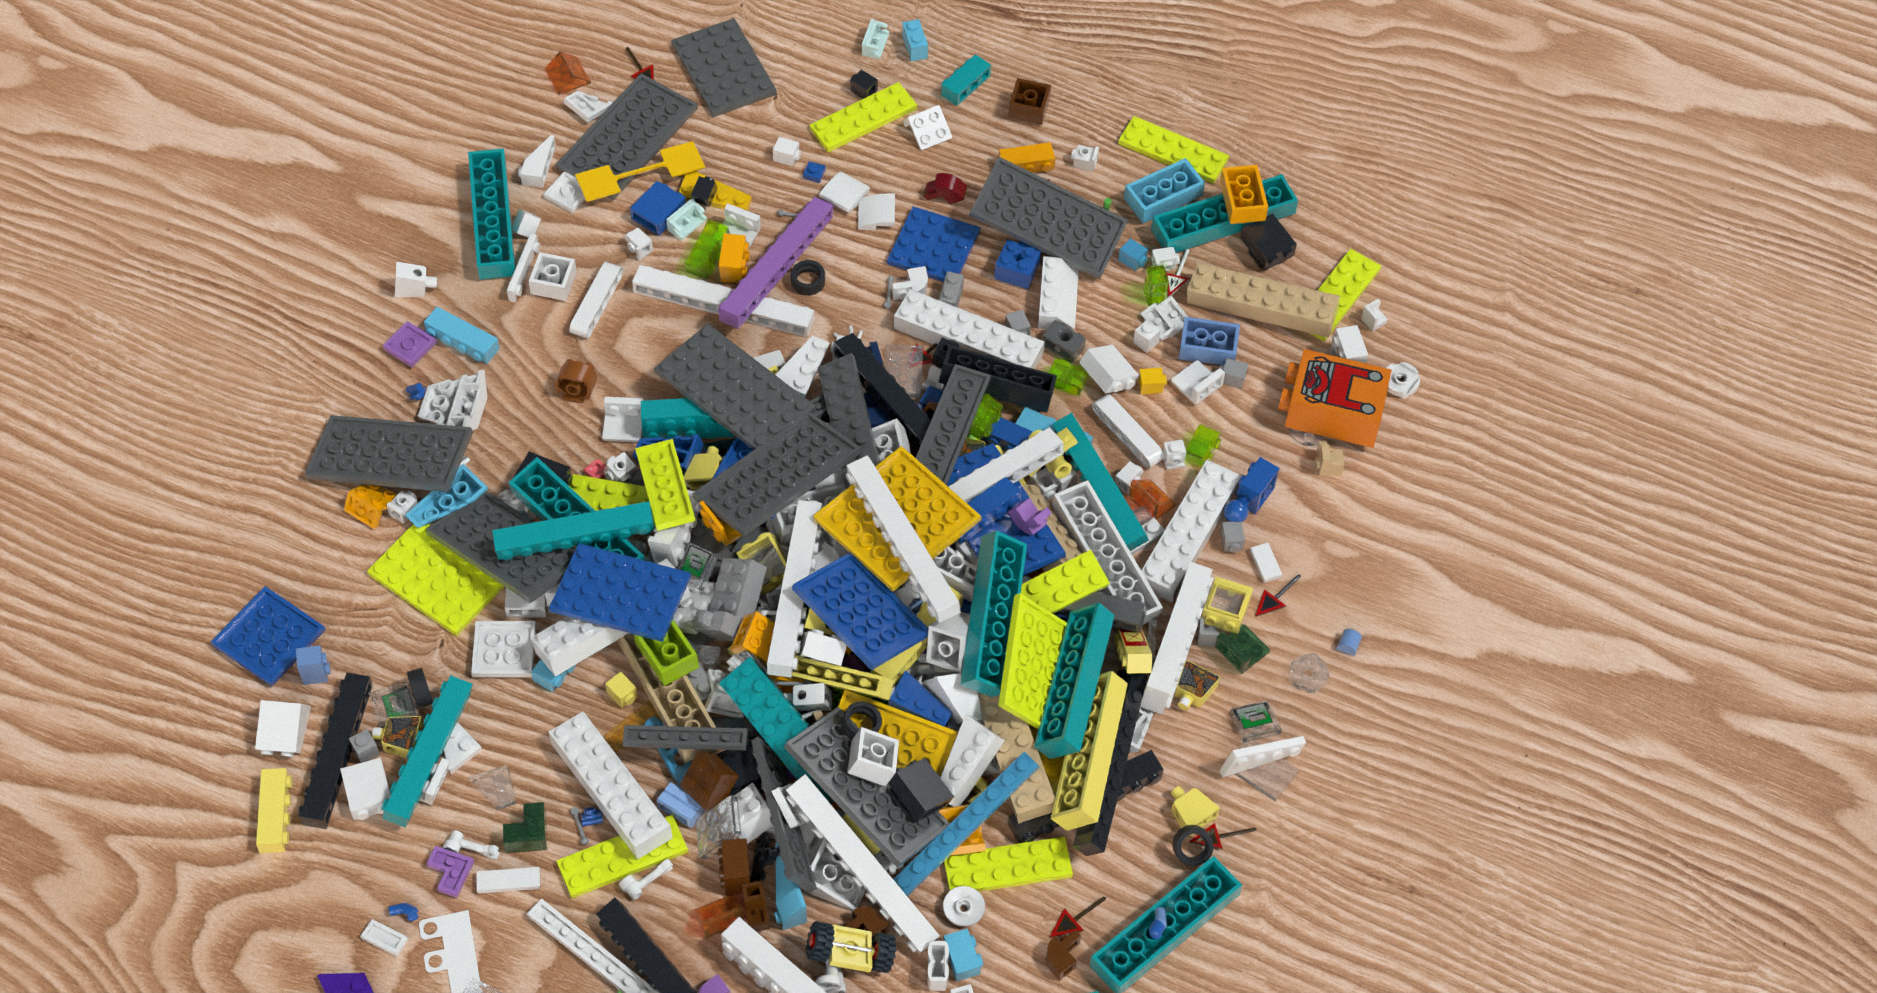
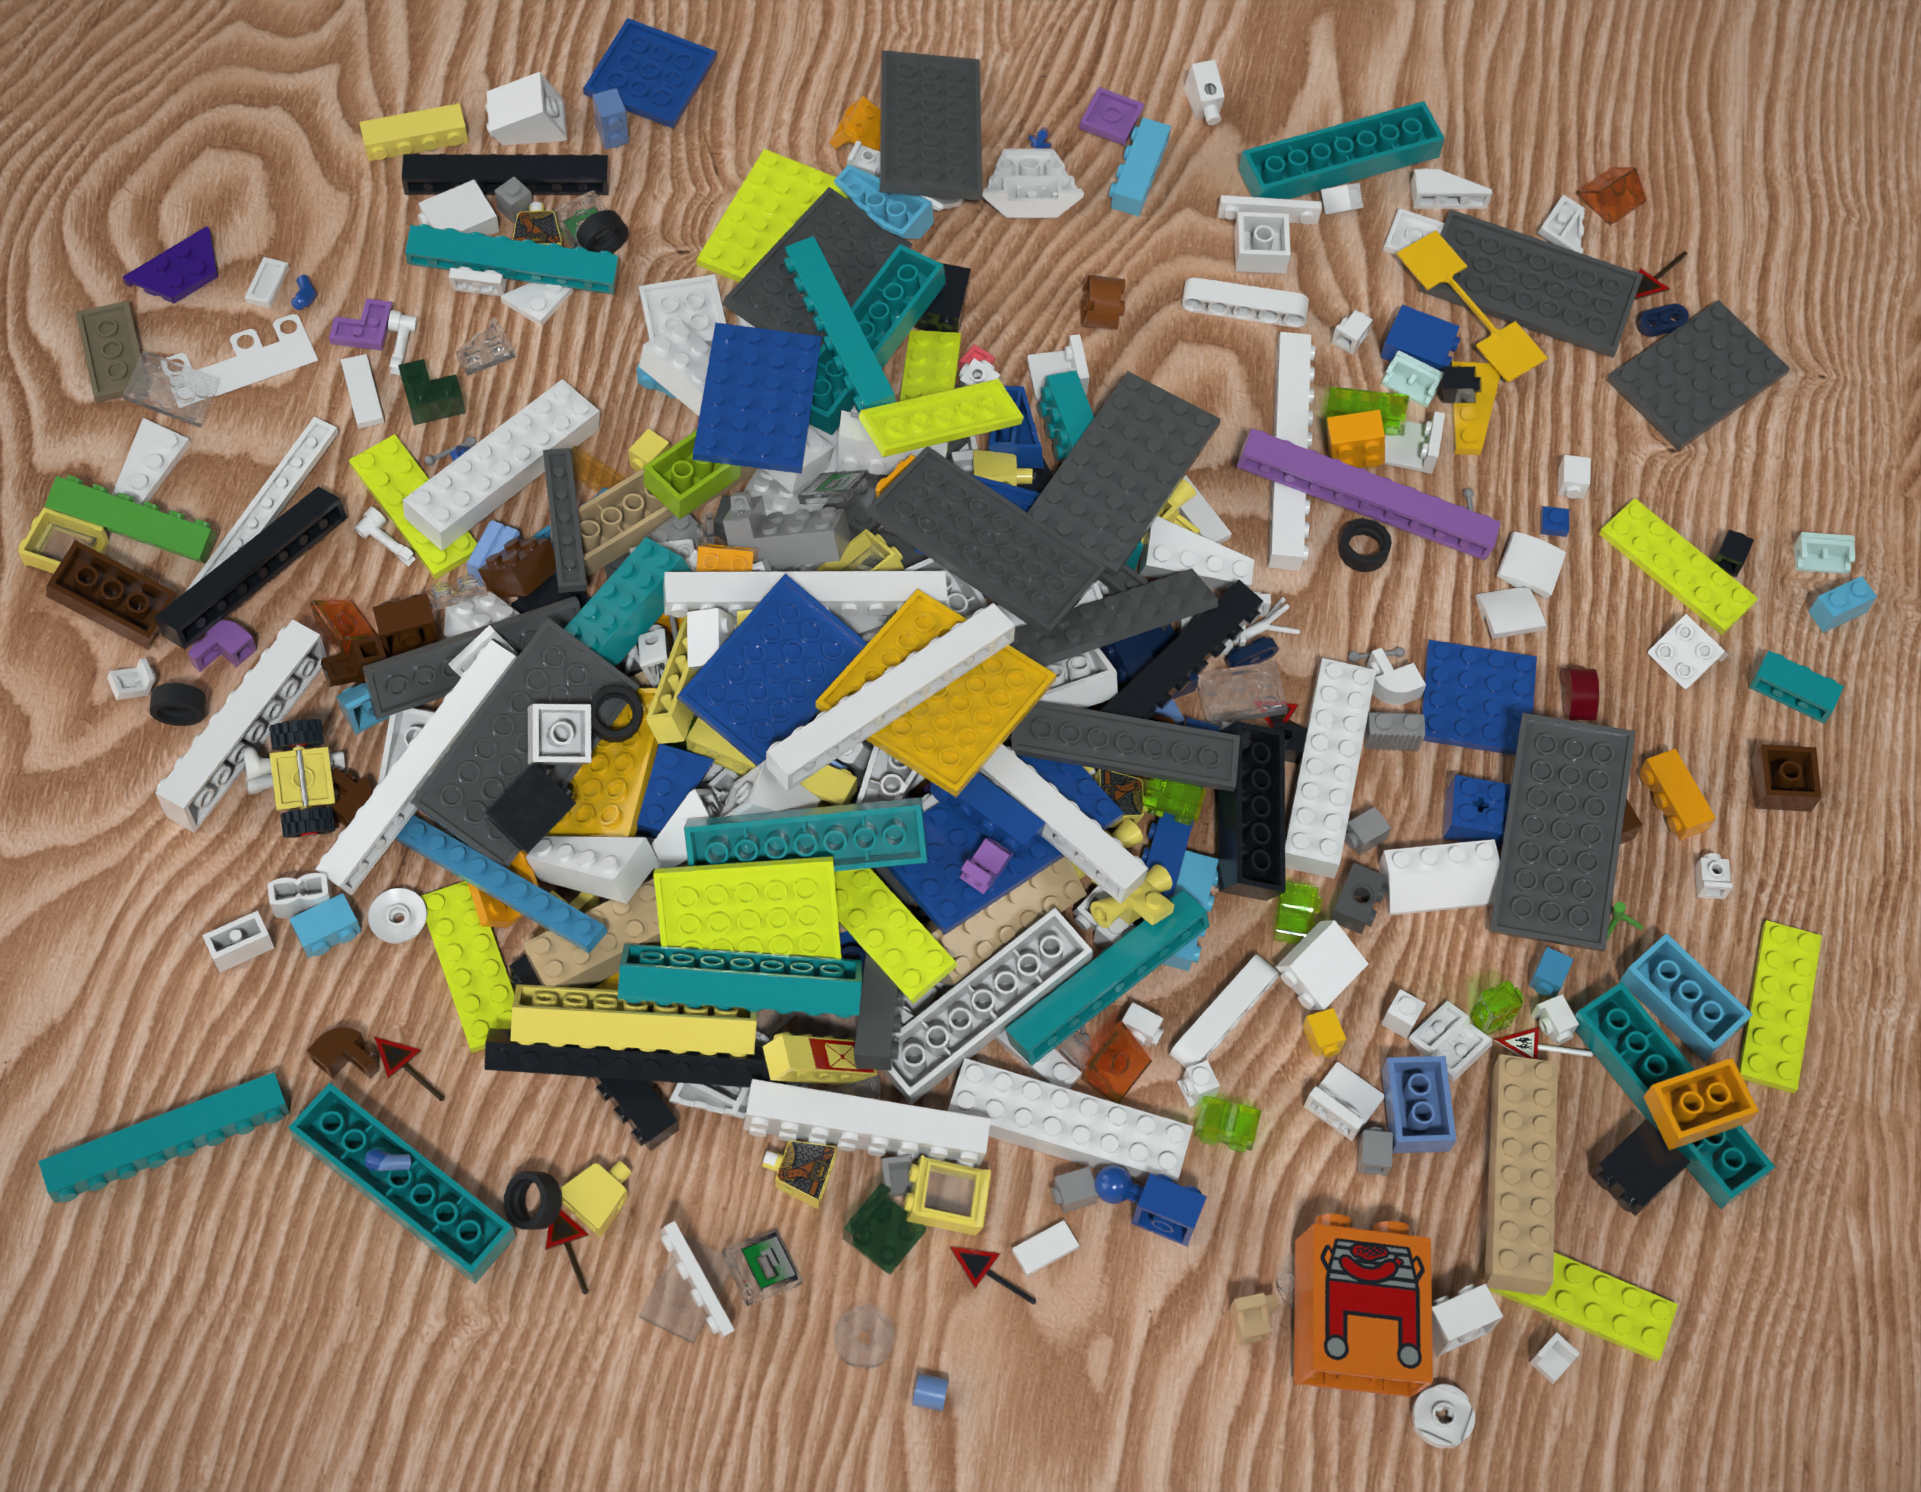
camera: 75 degrees right, 5 degrees up
(678, 73) = (1661, 321): none -> dark blue plate

